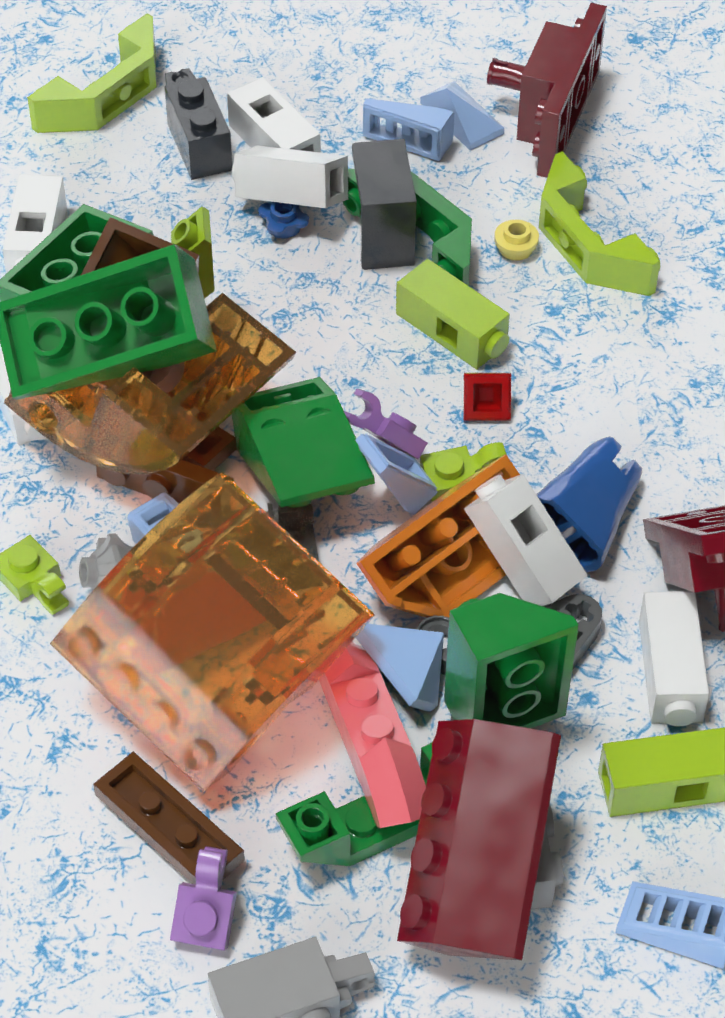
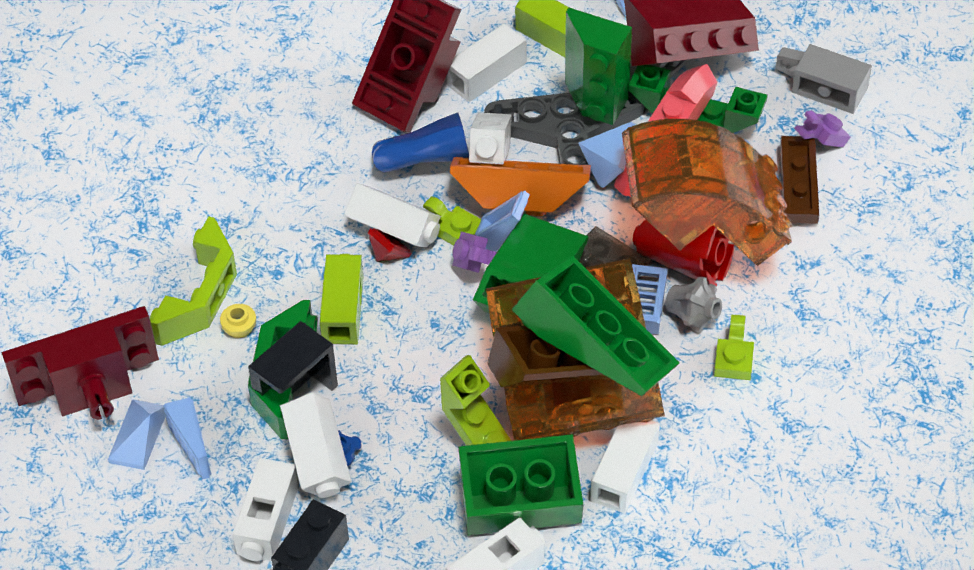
camera: 130 degrees left, 0 degrees up
(513, 409) = (393, 216): none -> white brick

